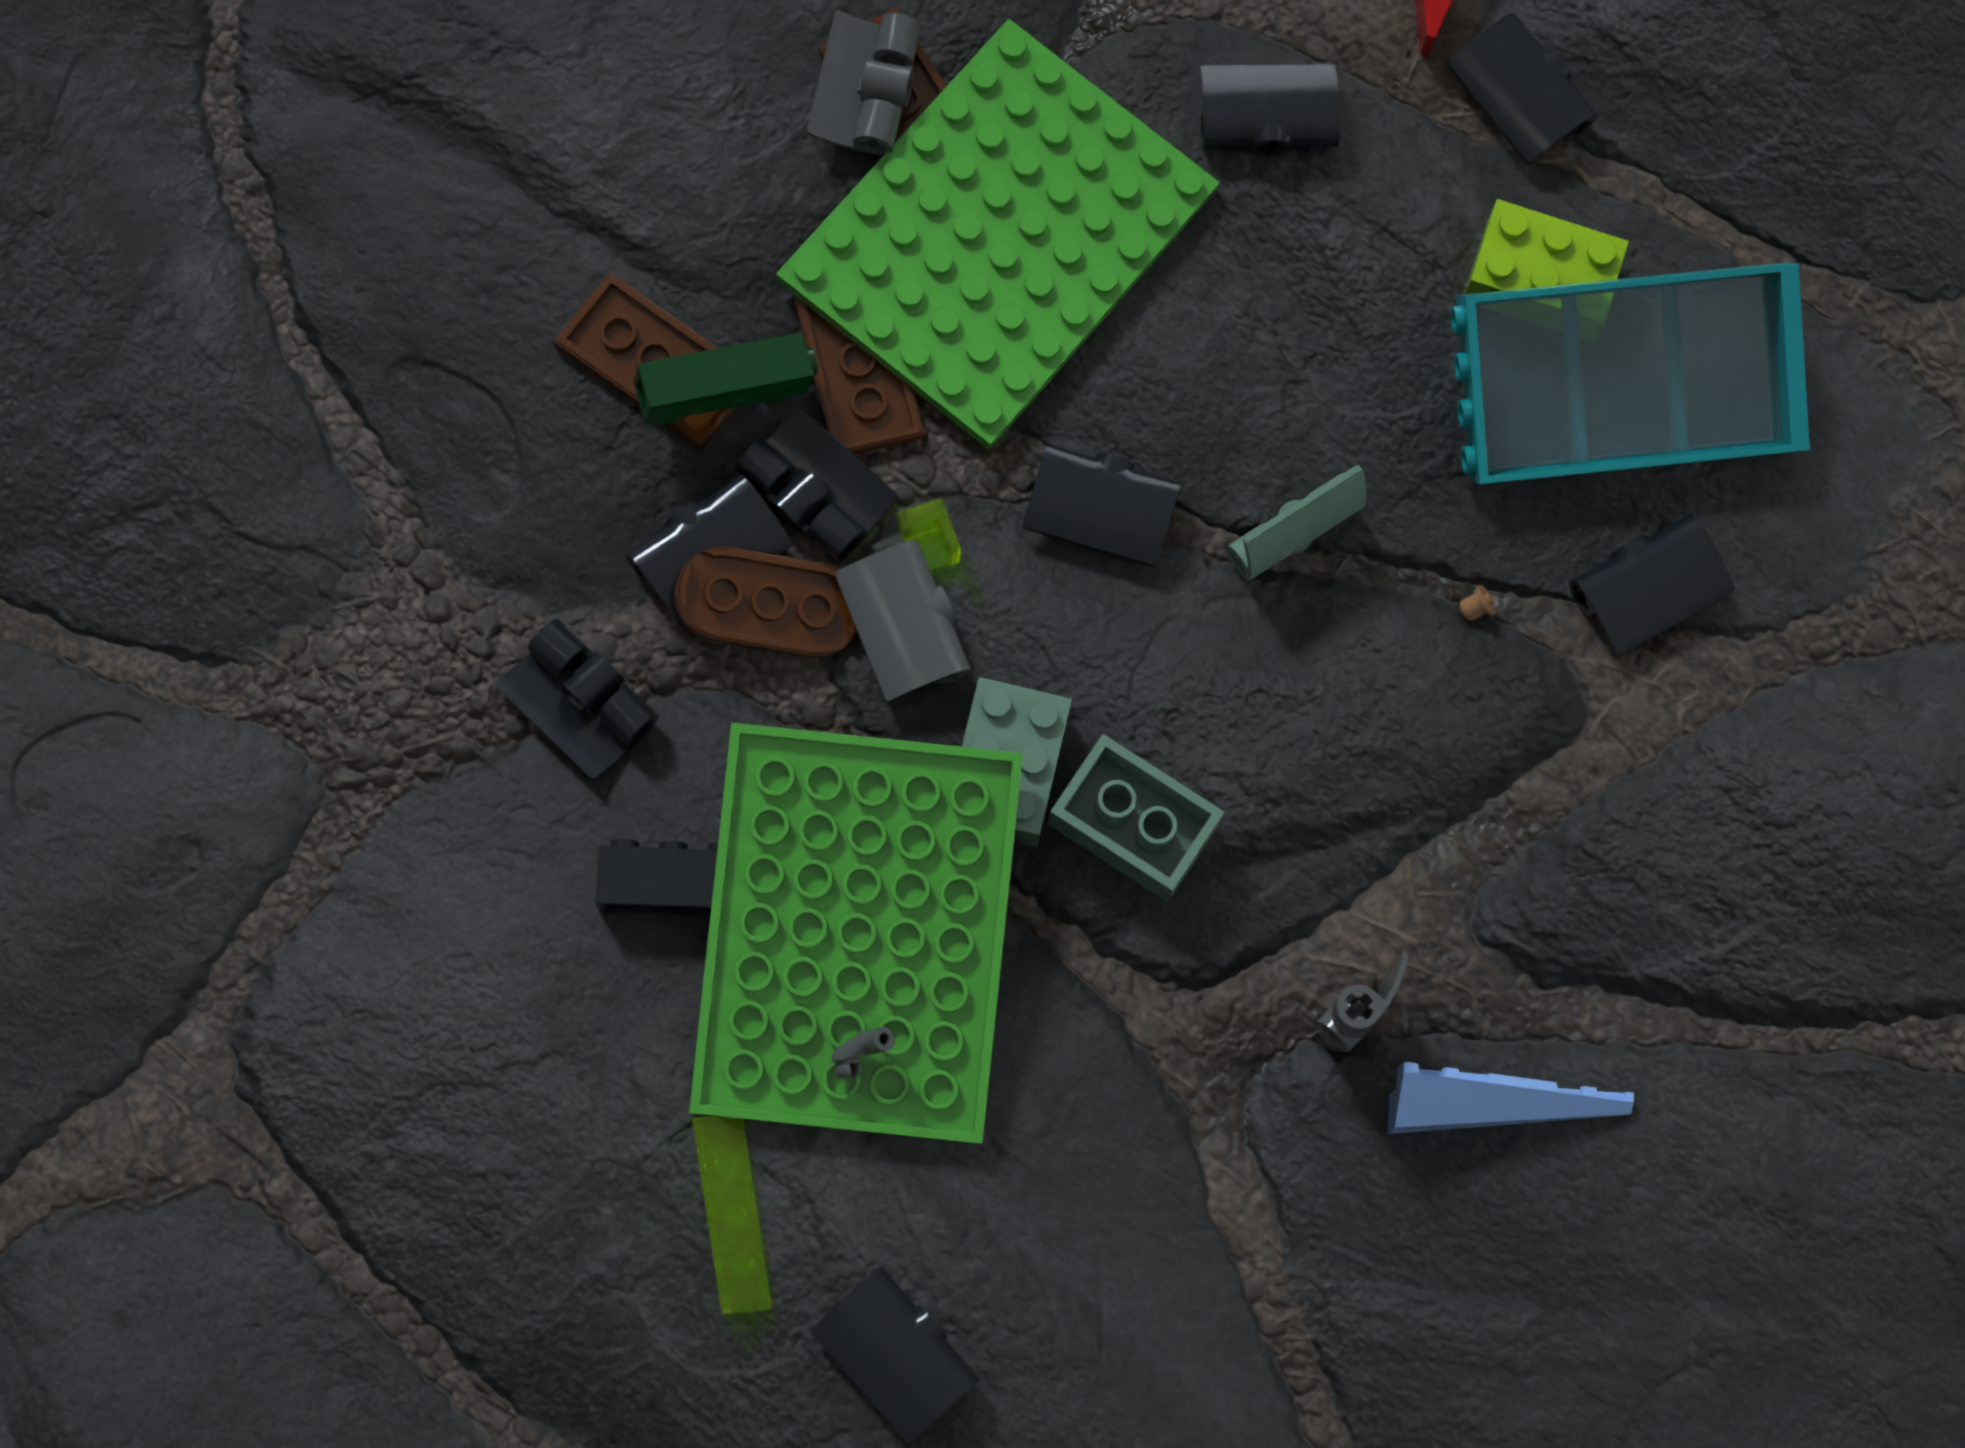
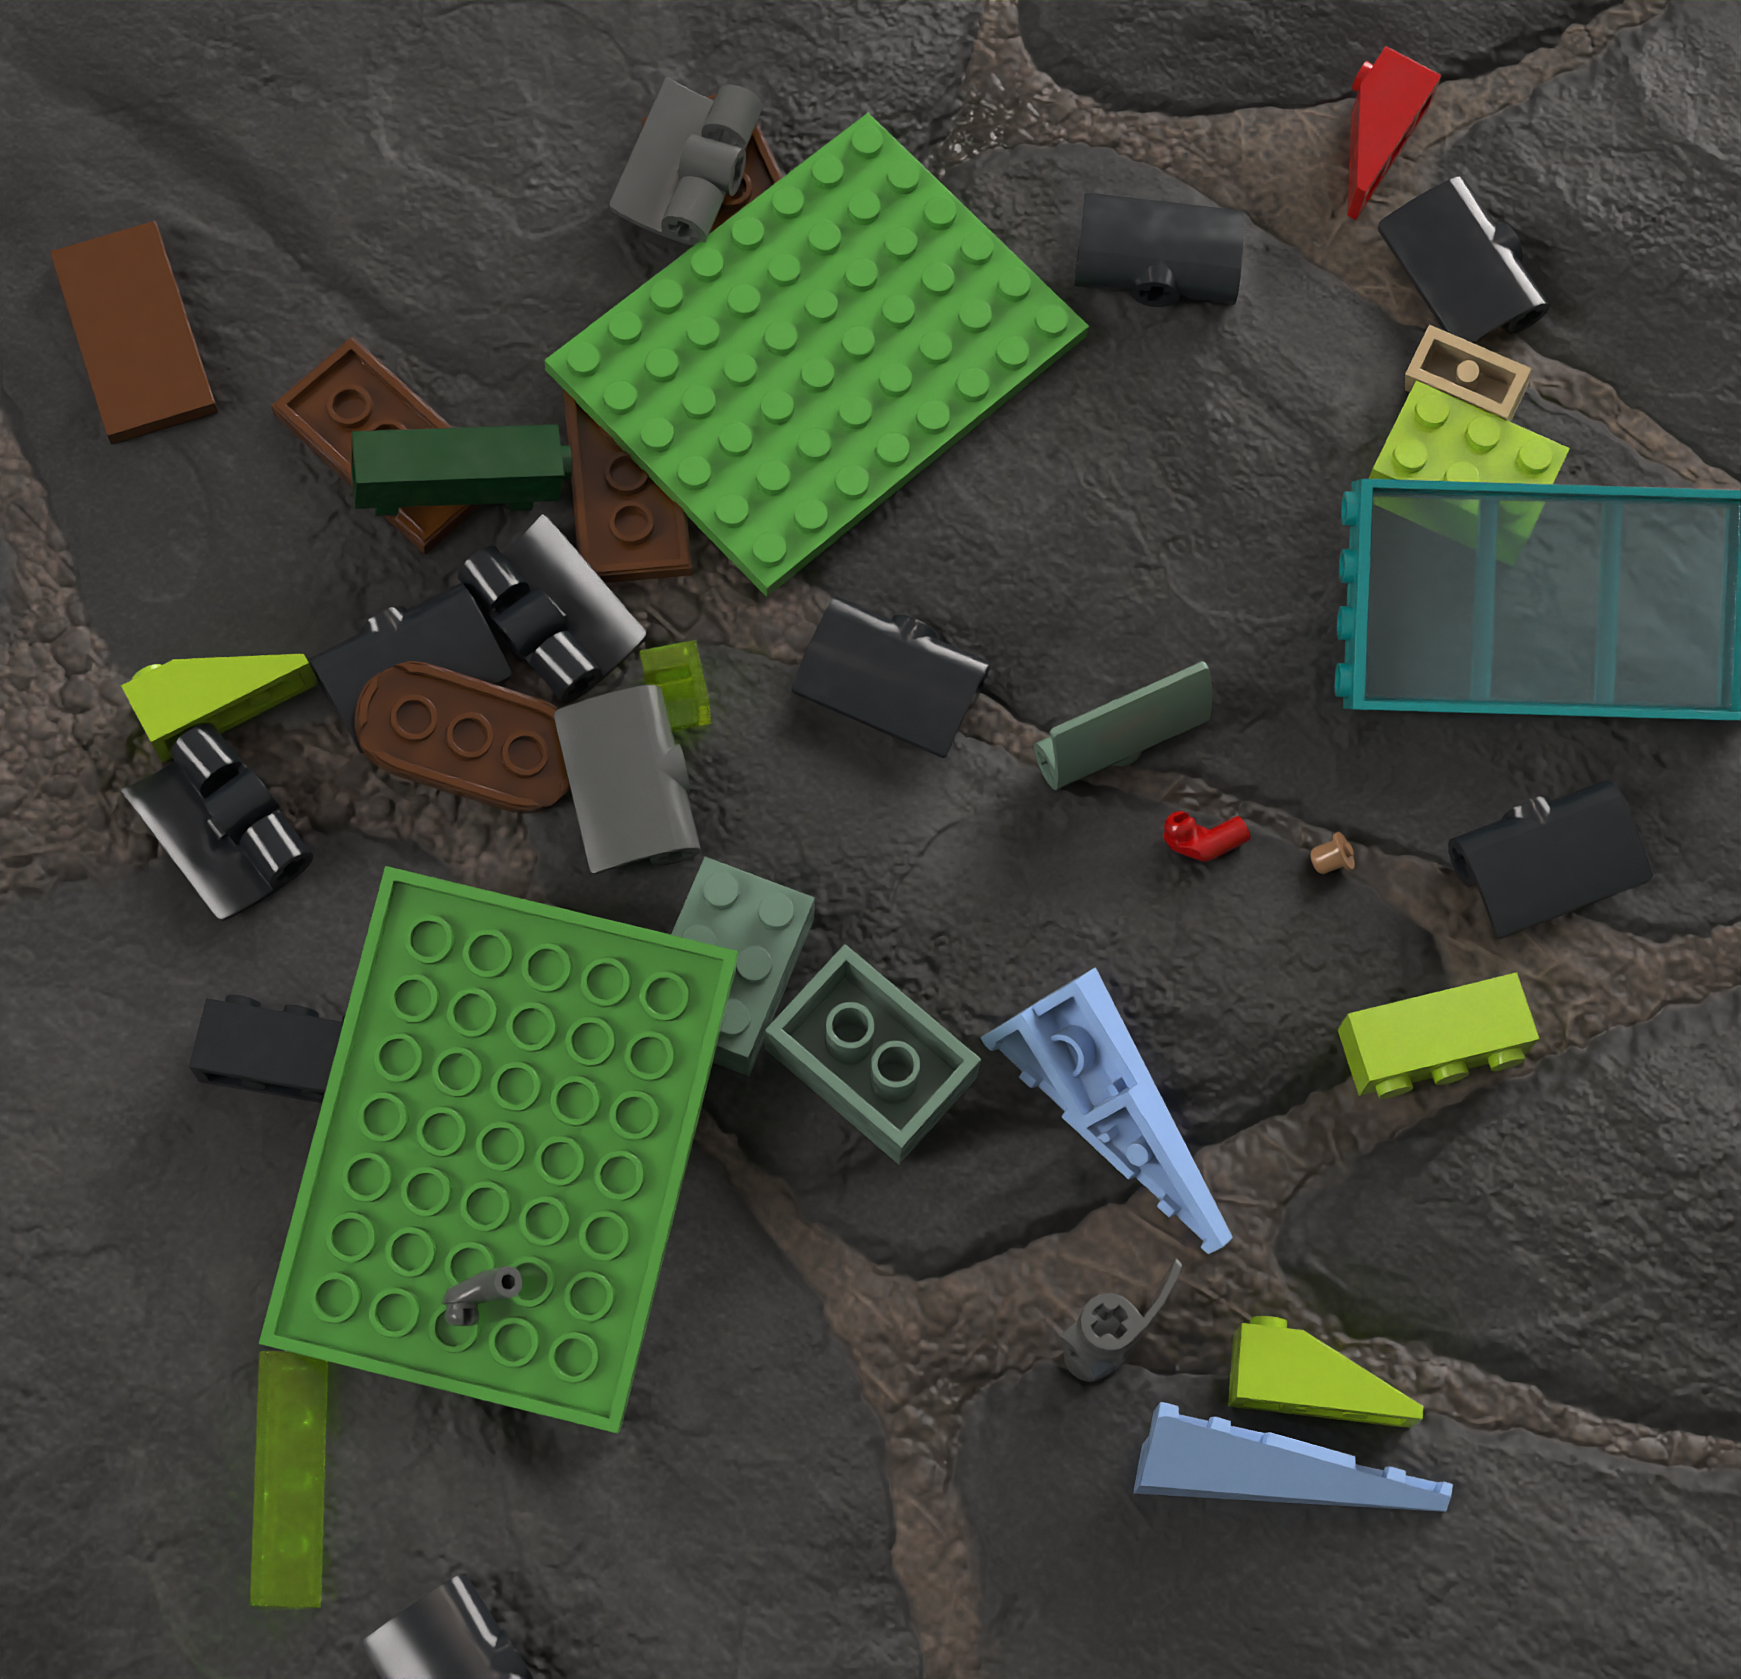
camera: 10 degrees right, 5 degrees down
(425, 291) = (133, 332): none -> reddish brown tile
(550, 592) = (213, 691): none -> lime slope
(1309, 805) = (1090, 1067): none -> light blue wedge
(1372, 609) = (1201, 843): none -> red arm
(1508, 1025) = (1302, 1376): none -> lime slope
(1538, 187) = (1468, 373): none -> tan brick
(1580, 742) = (1438, 1036): none -> lime brick

